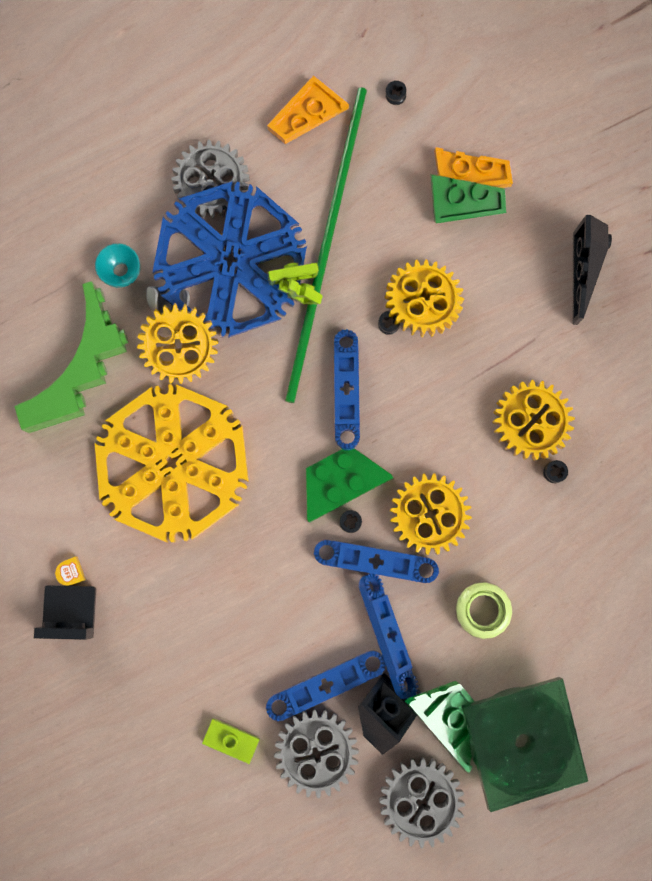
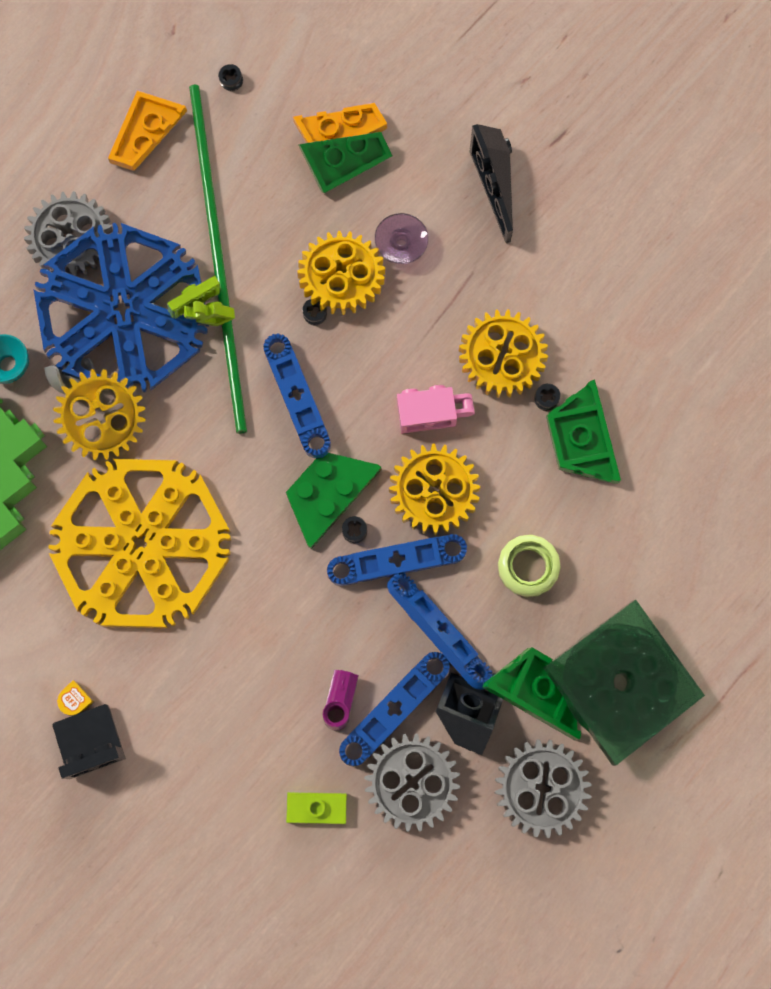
camera: 20 degrees left, 5 degrees down
(285, 657) = (340, 697): none -> magenta piece
(454, 444) = (431, 408): none -> bright pink brick
(491, 278) = (401, 227): none -> clear purple dish
(572, 518) = (582, 436): none -> green wing

